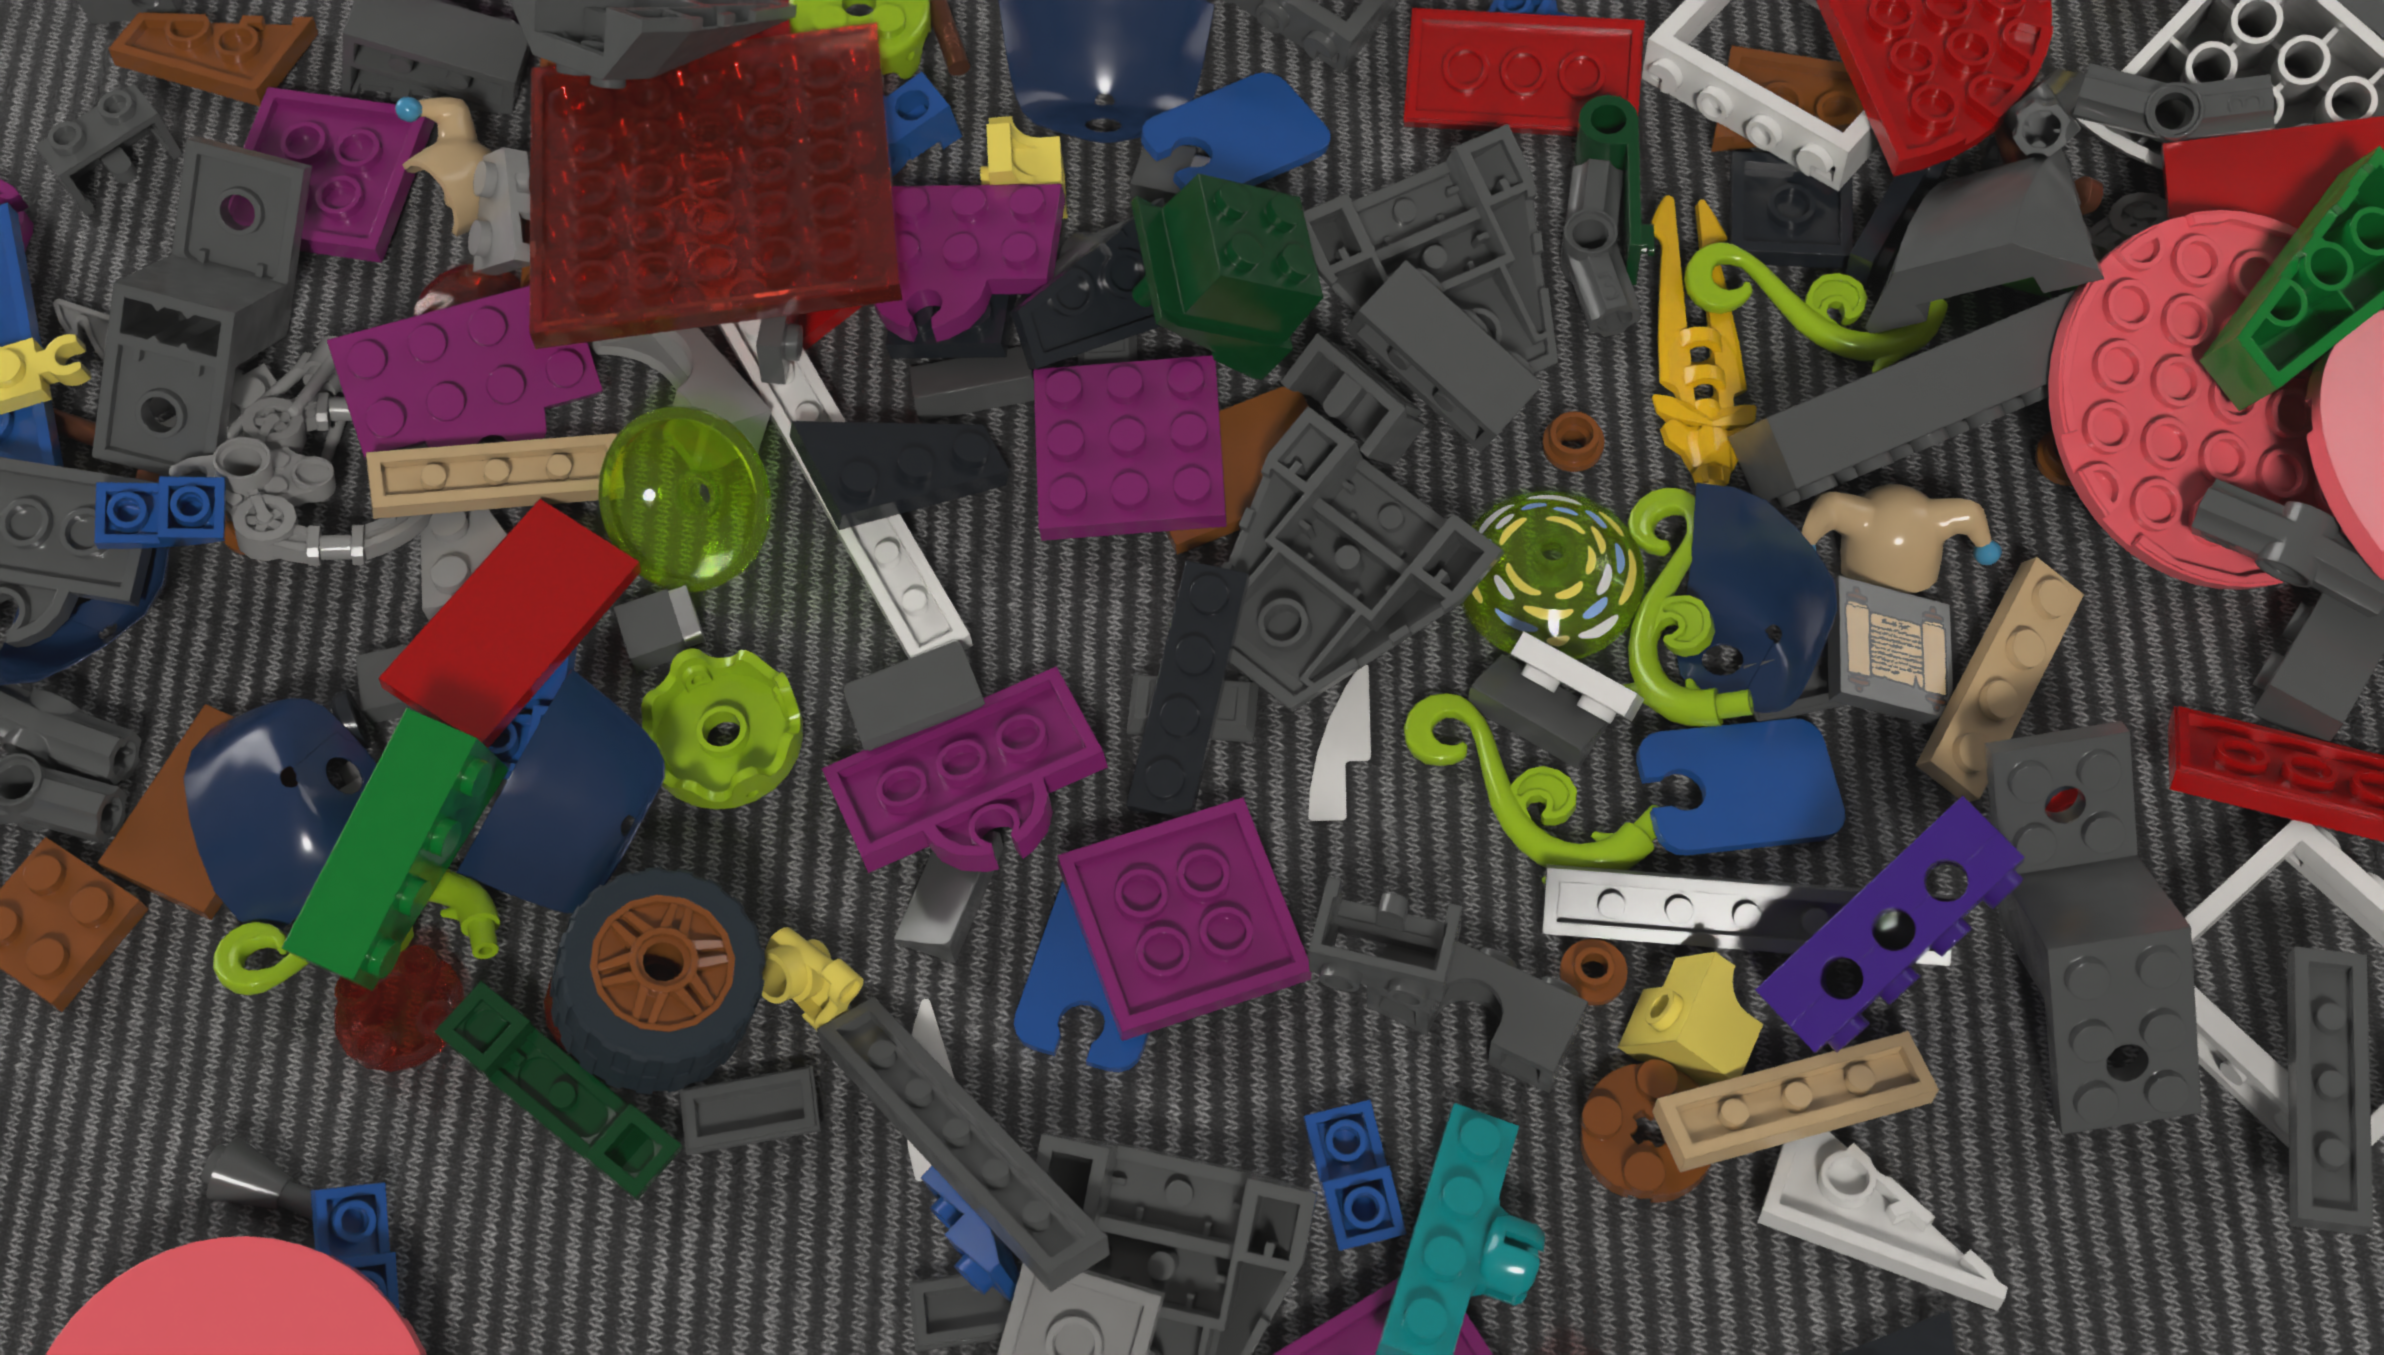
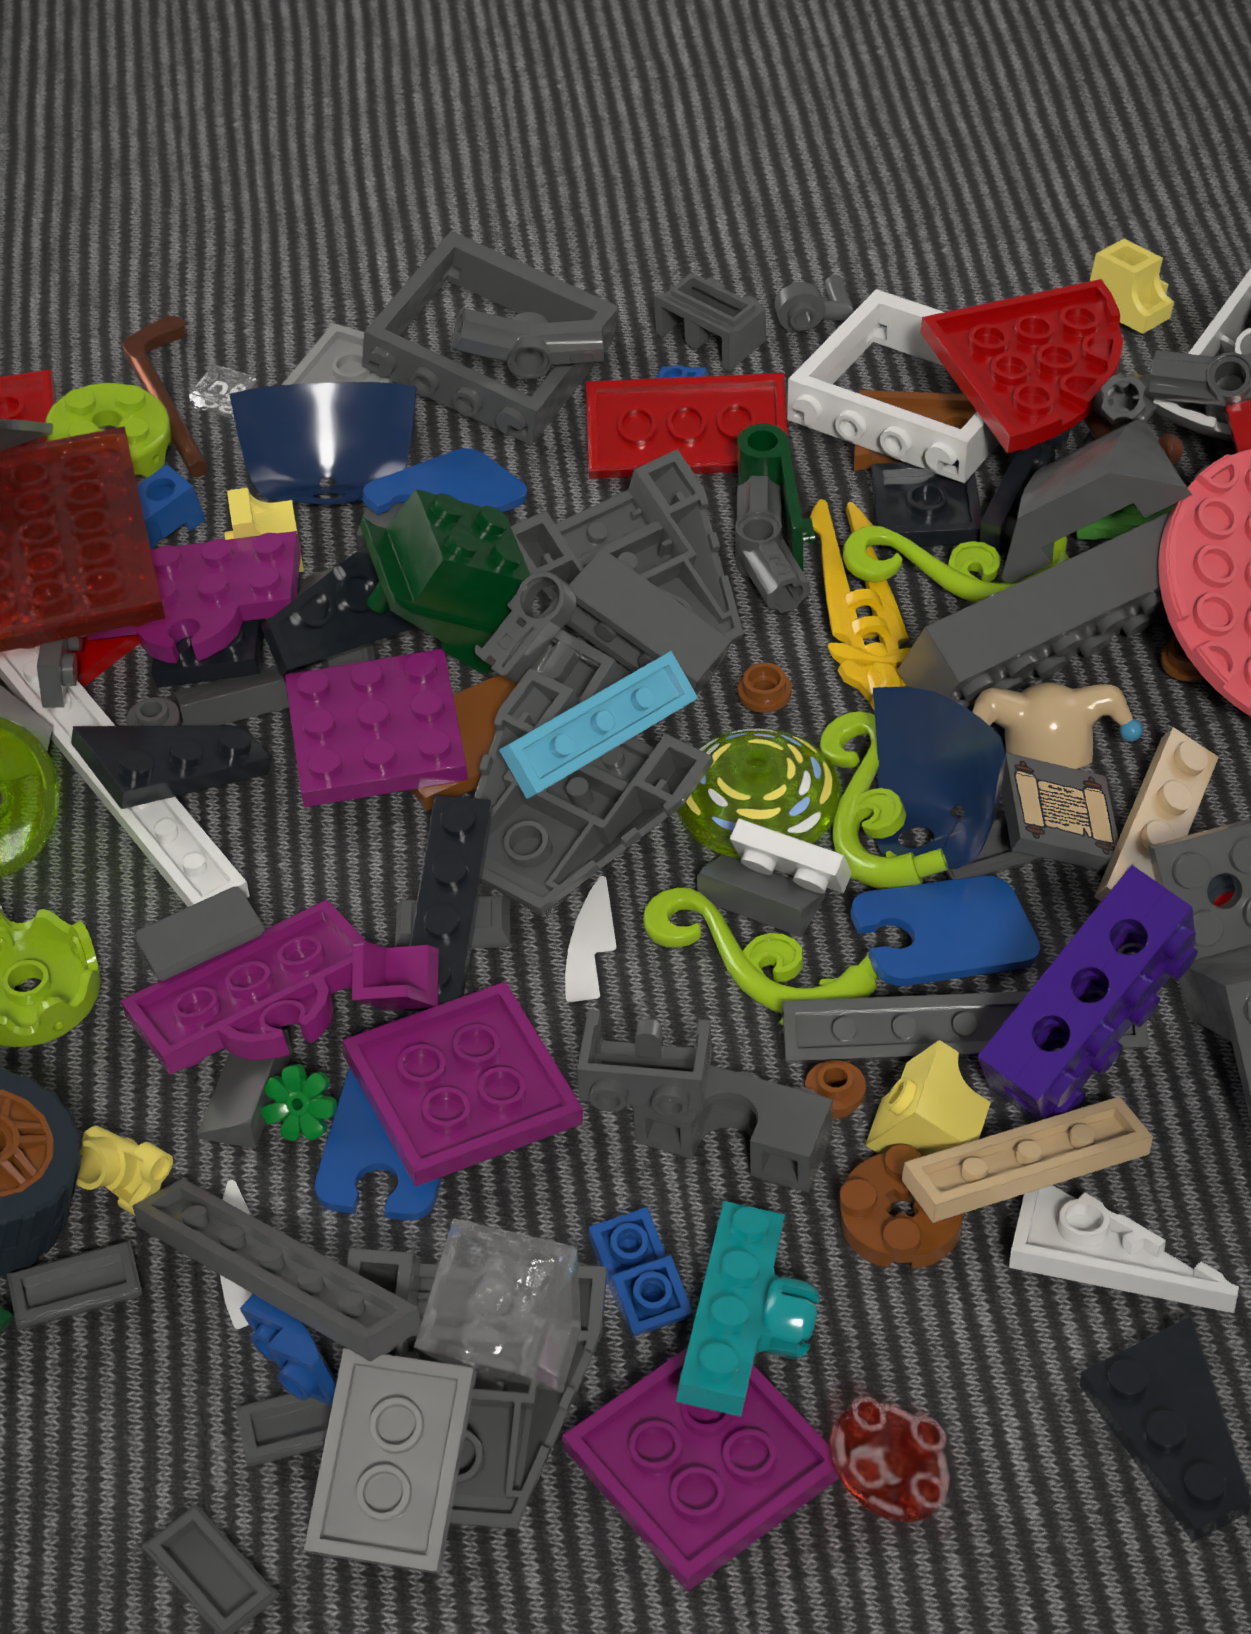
camera: 10 degrees left, 15 degrees down
(879, 388) = (154, 712): none -> dark grey plate
(1005, 923) = (299, 1103): none -> green plant
(1121, 786) = (395, 976): none -> magenta panel
(1199, 1239) = (504, 1306): none -> clear slope
(1305, 361) = (522, 635): none -> dark grey piece
(1379, 487) = (598, 724): none -> medium azure plate

